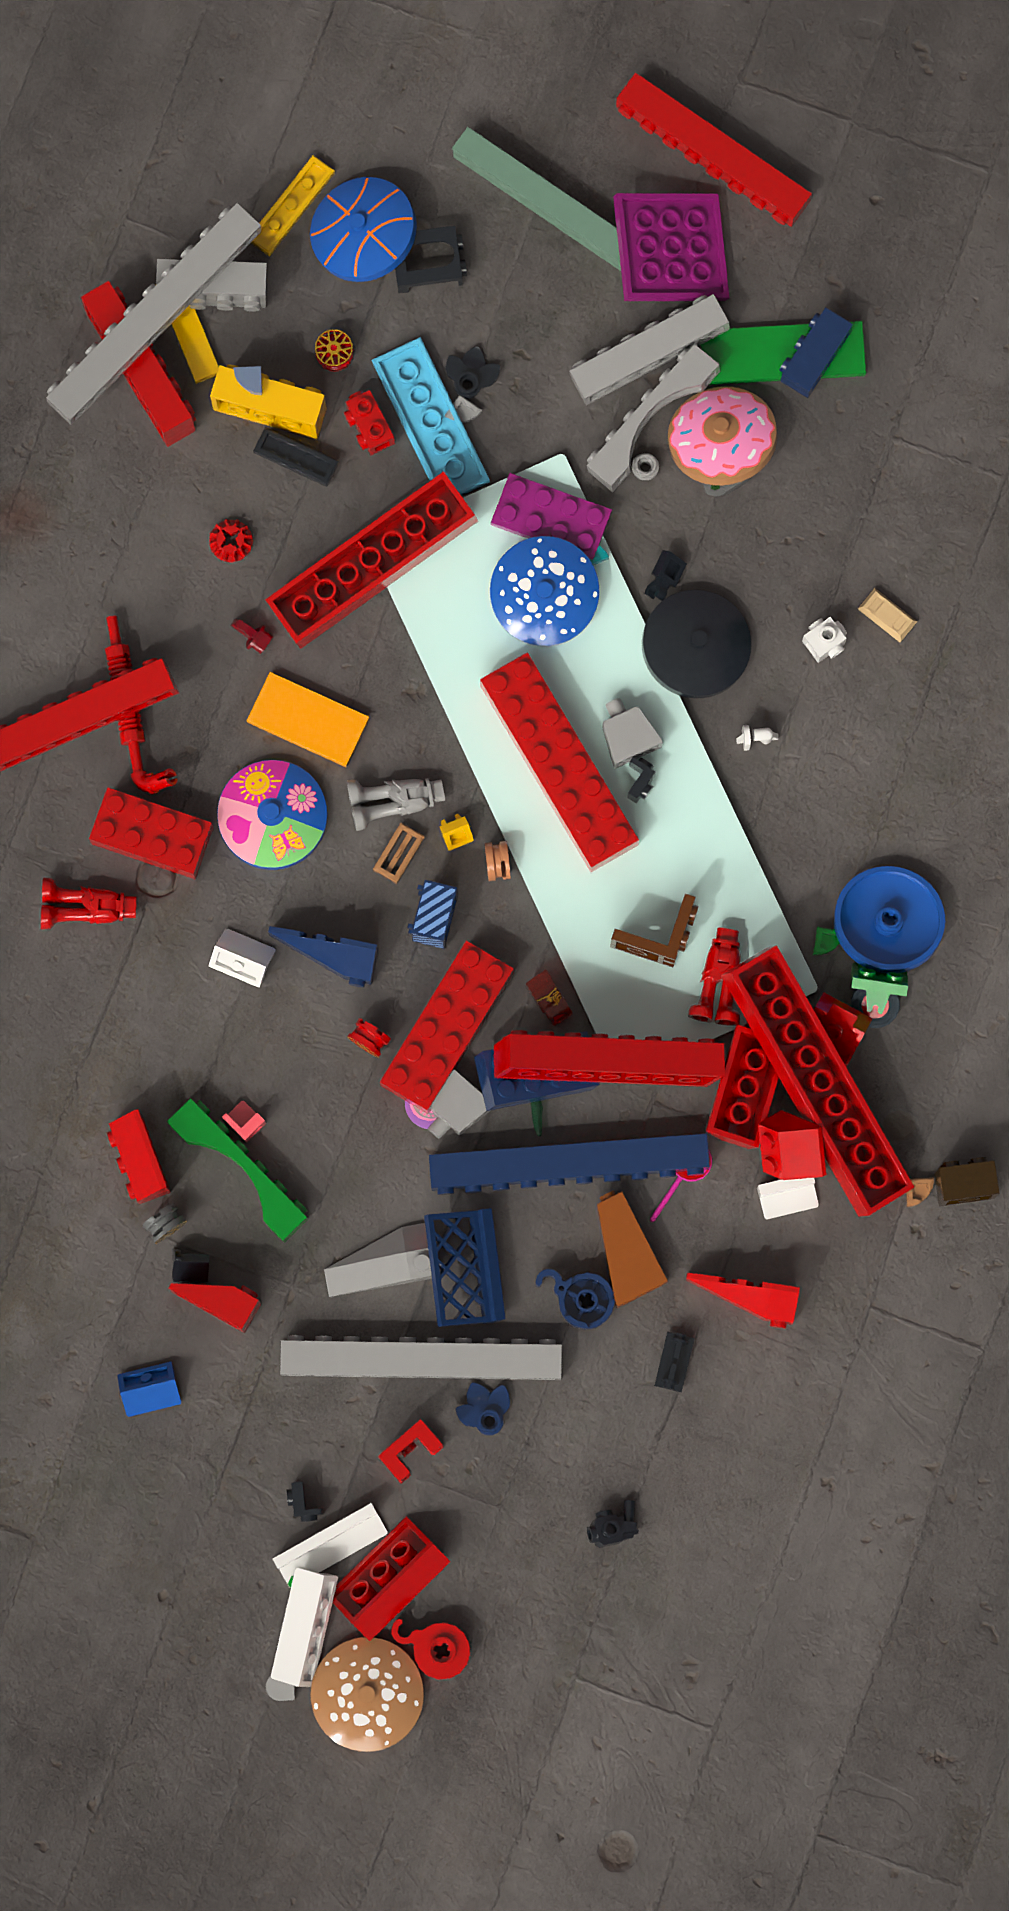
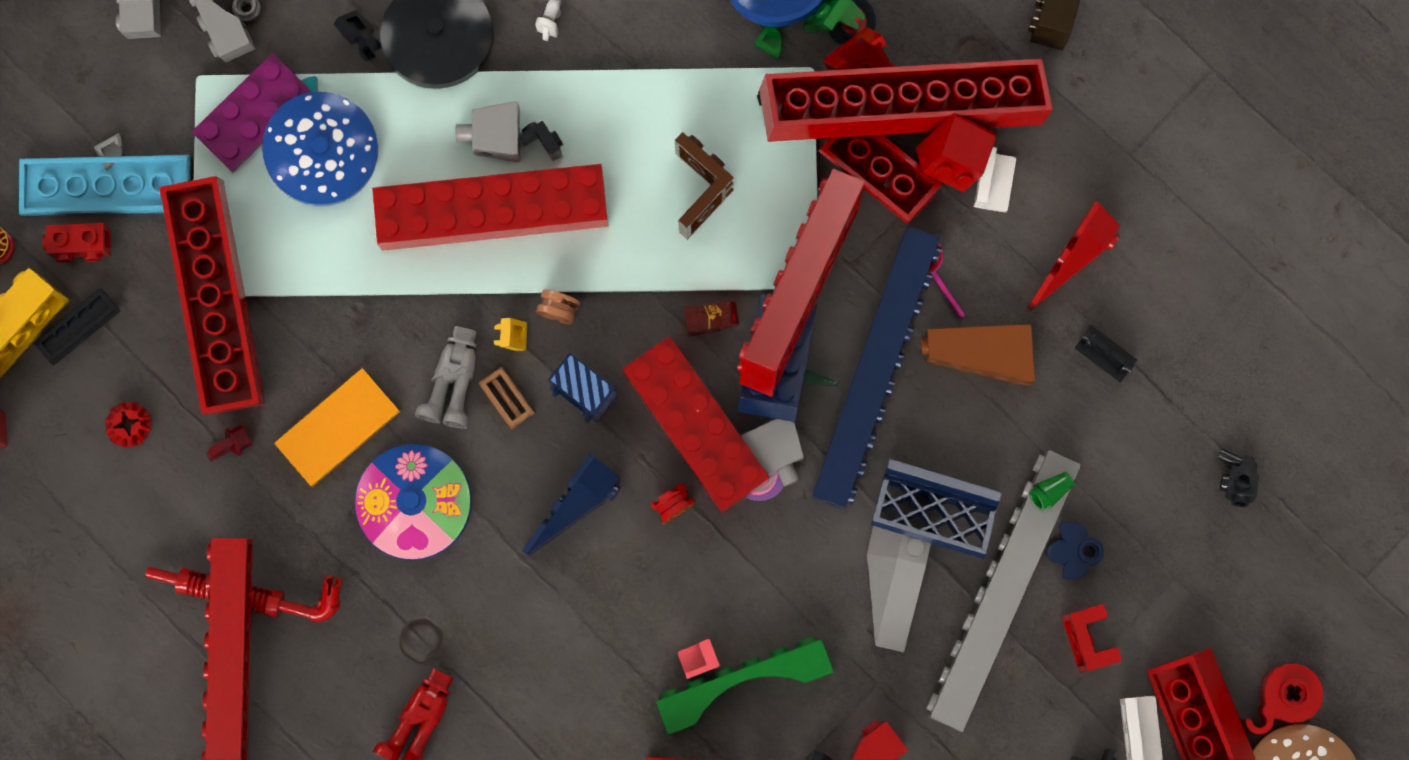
camera: 65 degrees left, 0 degrees up
(151, 833) = (377, 626): red brick -> none
(241, 957) = (538, 591): white panel -> none
(471, 369) = (75, 125): black plate -> none
(524, 1360) = (1050, 491): none -> green cone
(570, 1292) = (1000, 420): dark blue piece -> none
(721, 958) = (751, 143): red piece -> none
(920, 1192) = (1040, 52): medium nougat tile -> none

